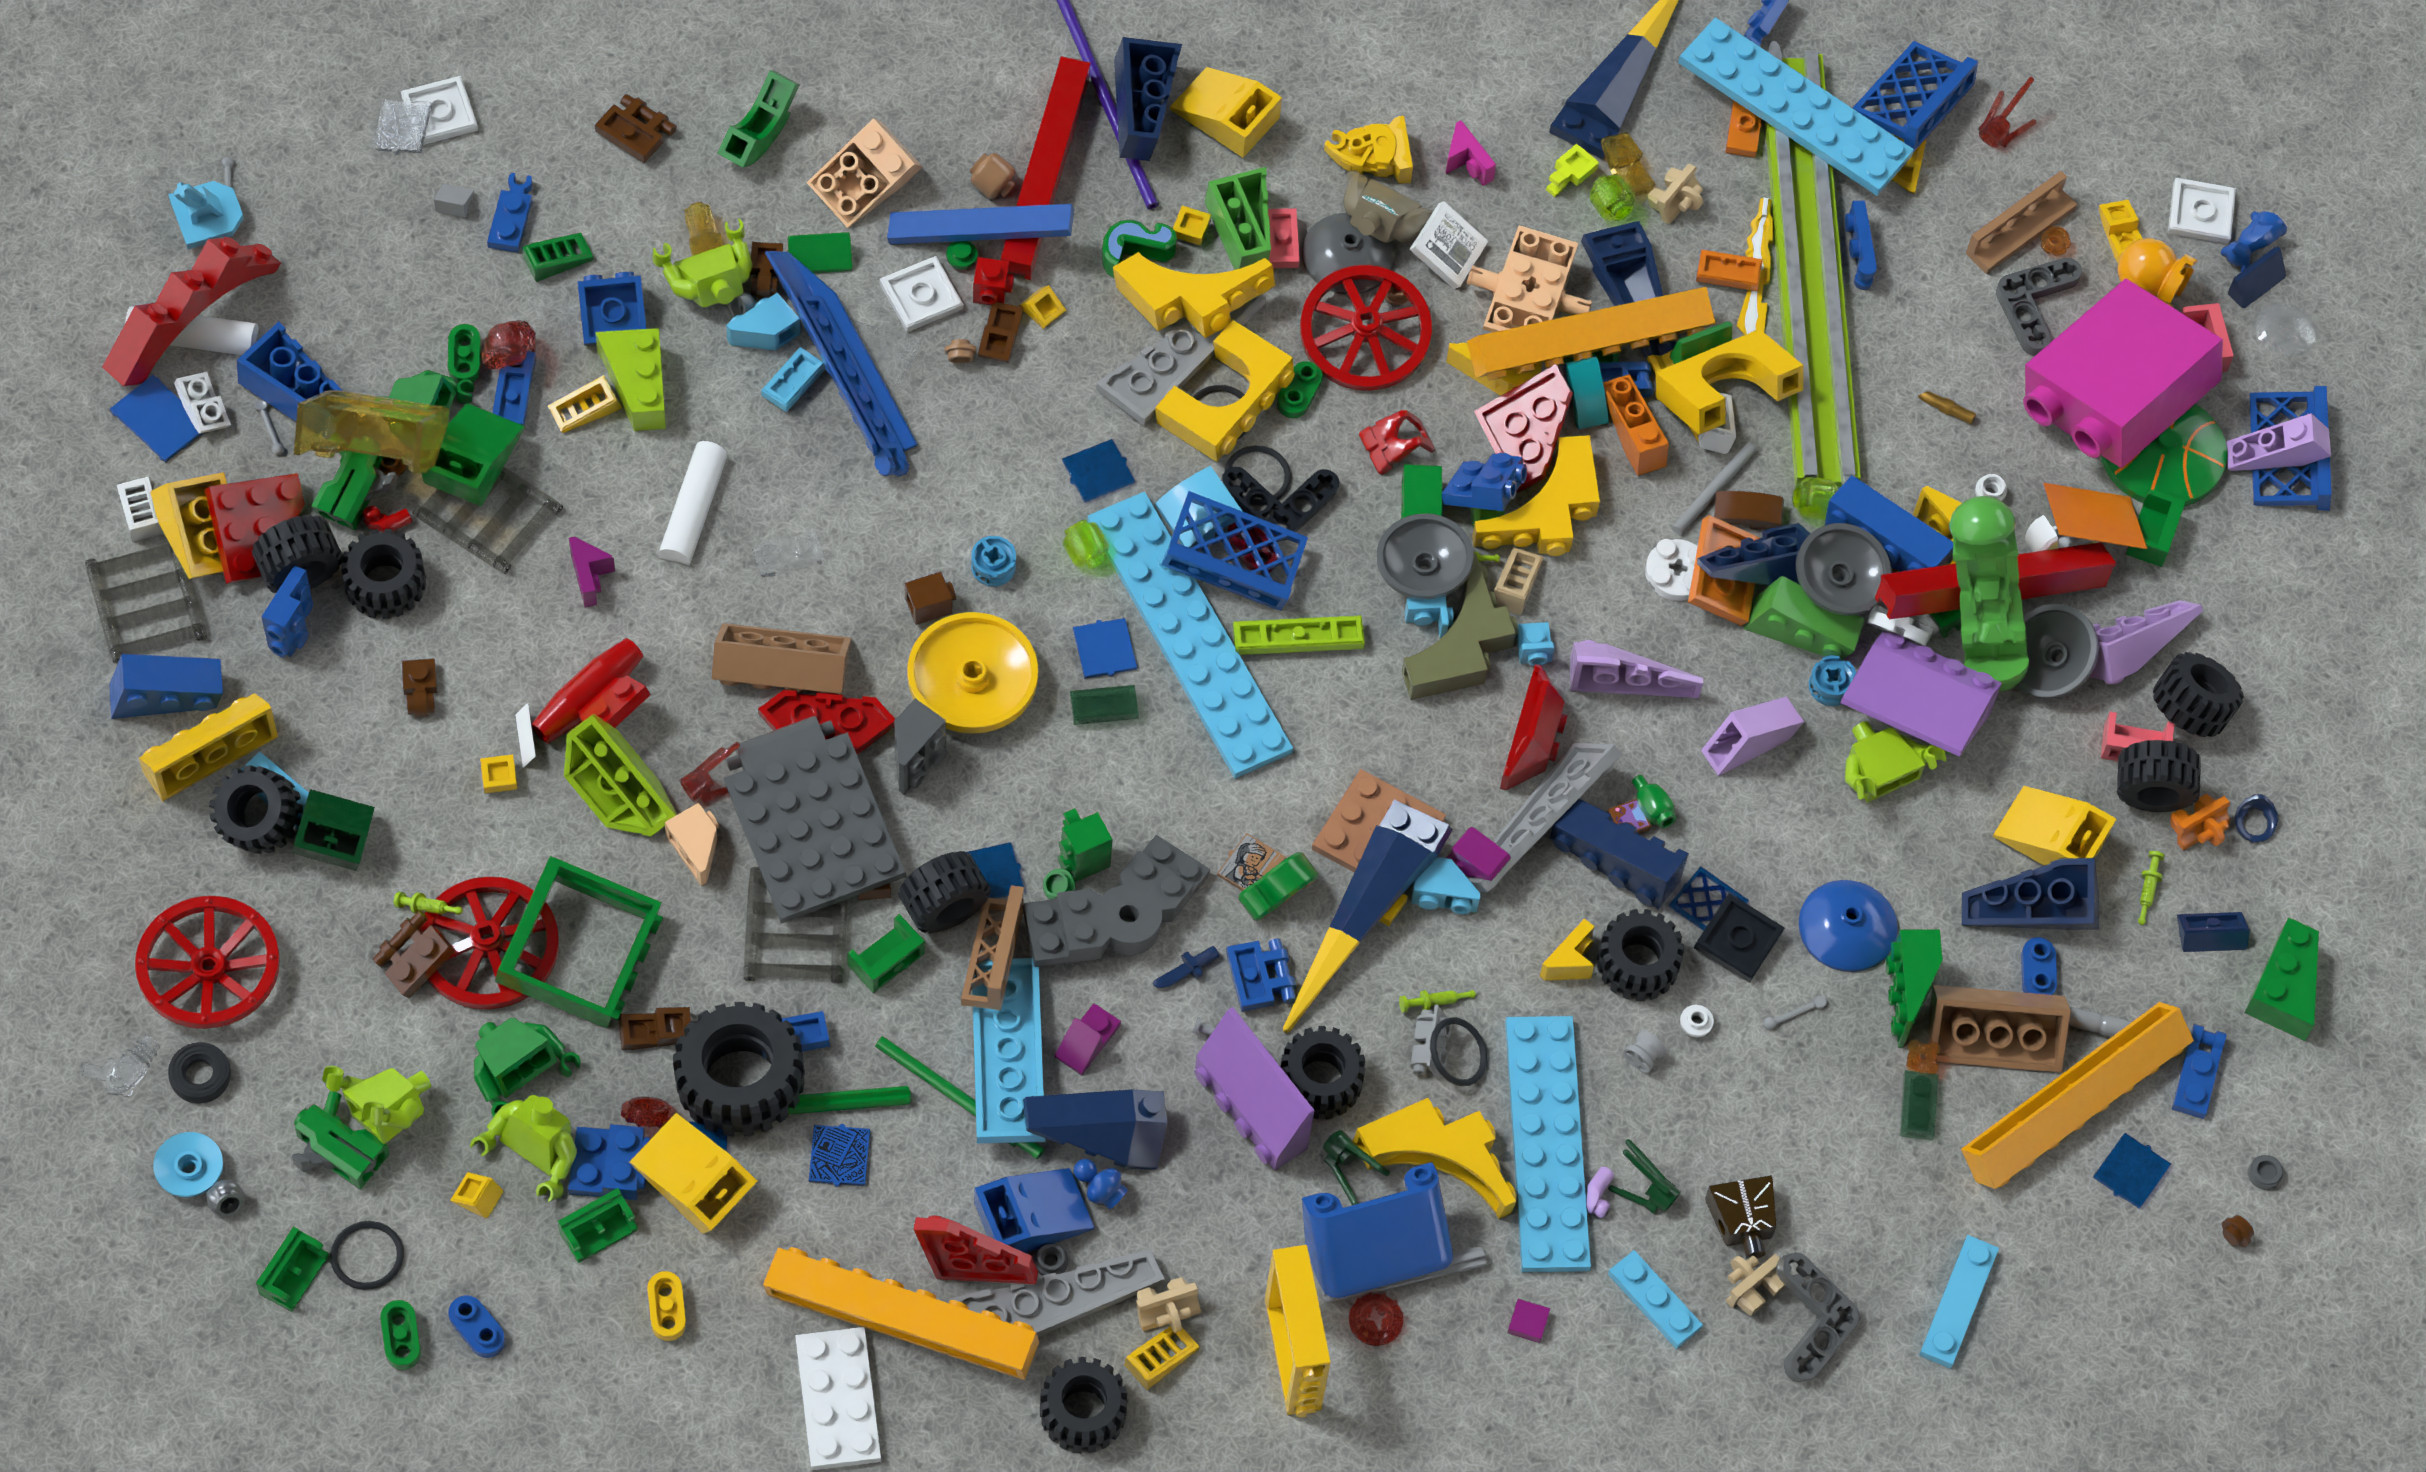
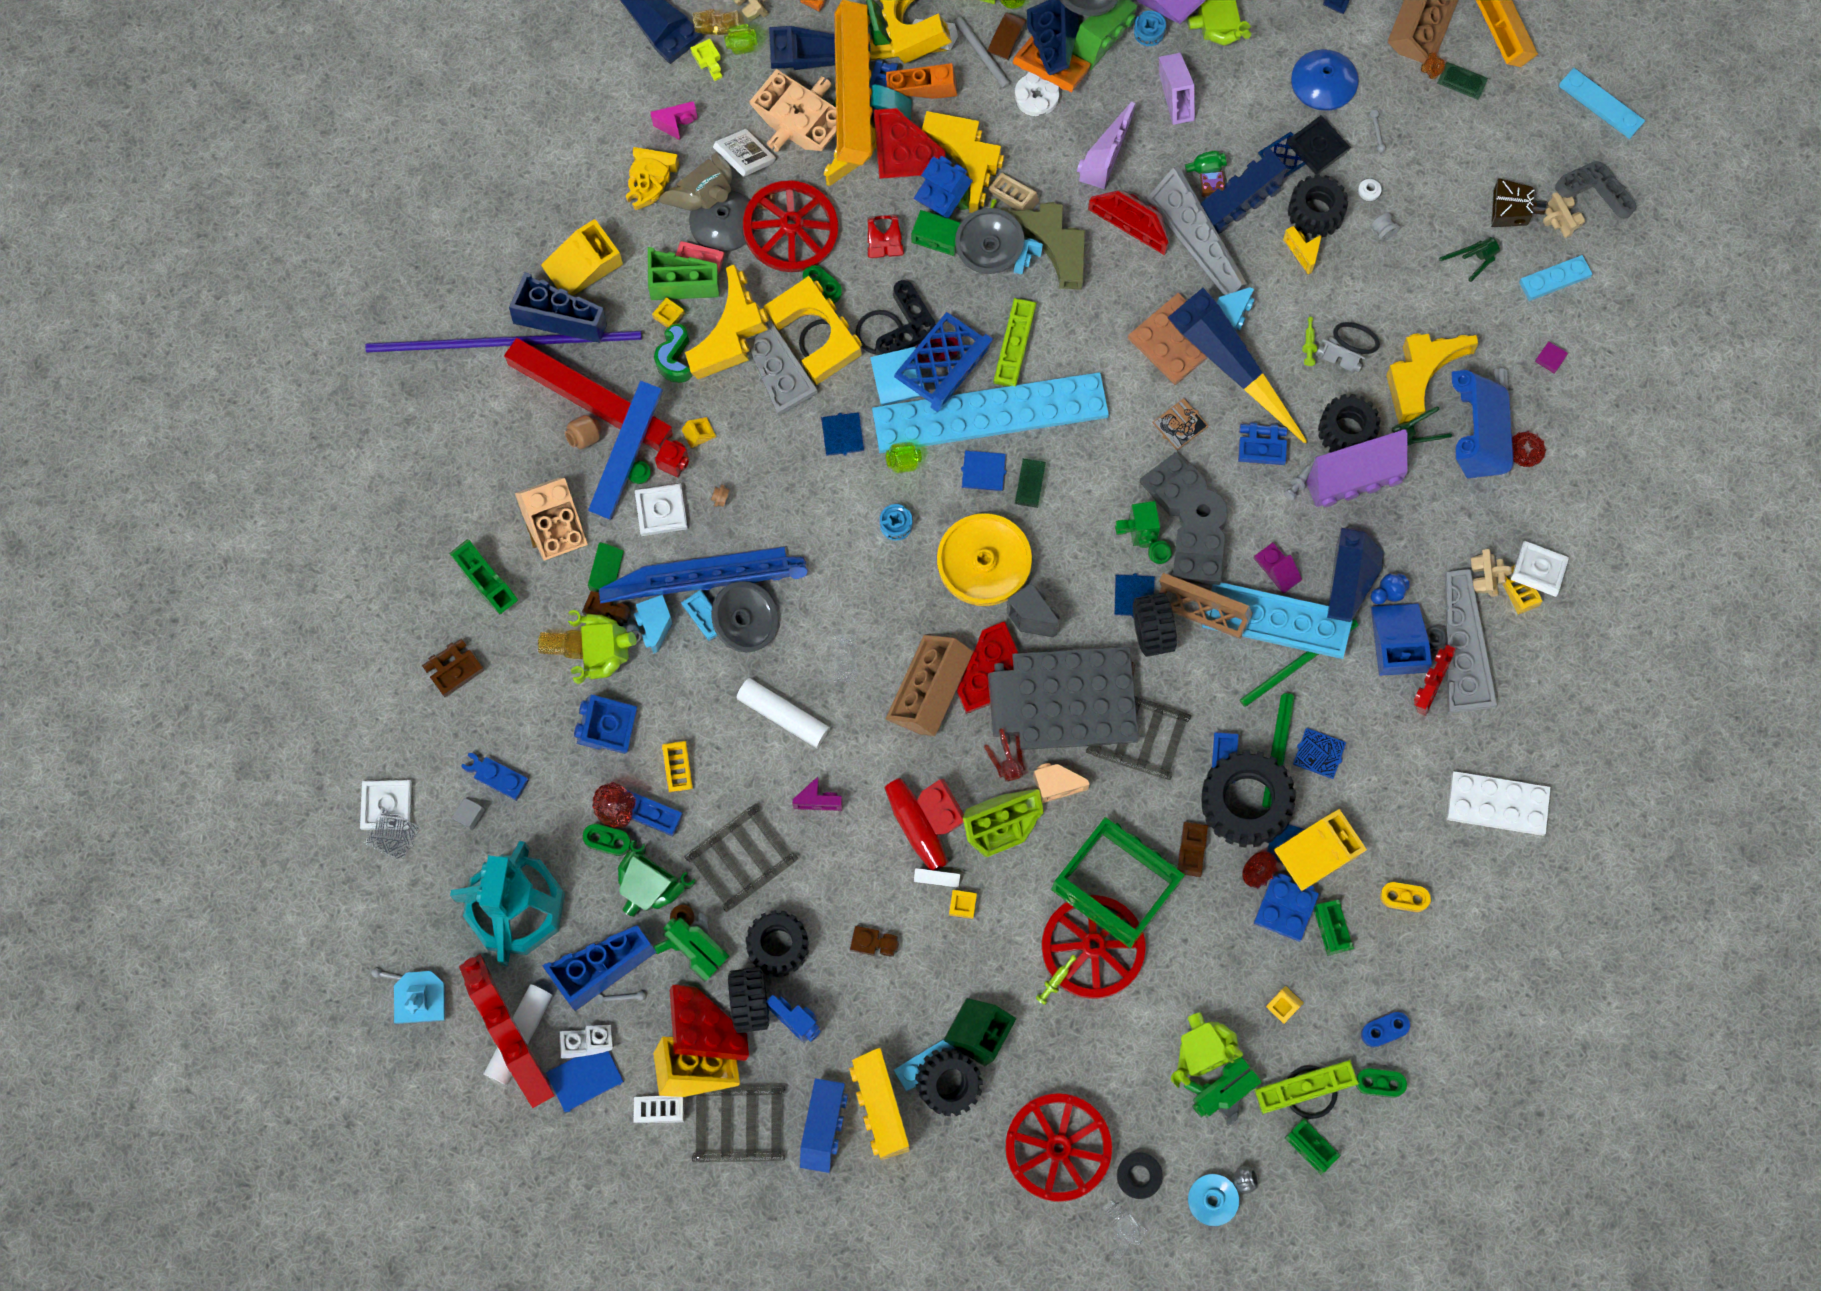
camera: 65 degrees left, 10 degrees up
(345, 237) = (505, 893): none -> teal plate
(368, 1241) = (1306, 1087): none -> lime plate
(371, 426) = (668, 910): clear yellow windscreen -> none
(375, 520) = (730, 932): red arm -> none
(419, 960) = (1099, 996): reddish brown plate -> none
(473, 454) = (699, 853): green slope -> none
(514, 1056) = (1194, 951): green torso -> none
(536, 1134) = (1259, 949): lime torso -> none
(551, 267) = (546, 770): green slope -> none
(636, 373) = (668, 720): lime wedge -> none
(825, 418) = (756, 615): none -> dark grey dish
(887, 955) = (1180, 679): green panel -> none
(901, 1312) = (1456, 743): light orange brick -> none
(929, 597) = (915, 572): reddish brown brick -> none
(1000, 332) = (712, 466): reddish brown slope -> none
(1083, 1431) = (1559, 631): black tyre -> none
(1190, 965) = (1242, 486): dark blue piece -> none
(1198, 1371) = (1539, 568): none -> white tile
(1278, 886) = (1206, 410): green animal -> none
(1297, 1330) = (1550, 476): yellow window -> none
(1478, 855) = (1223, 279): magenta slope -> none
(1535, 643) = (1068, 197): medium azure bracket -> none
(1547, 1144) = (1430, 306): medium azure plate -> none
(1595, 1191) = (1480, 291): lavender arm -> none
(1913, 968) = (1387, 51): green slope -> none

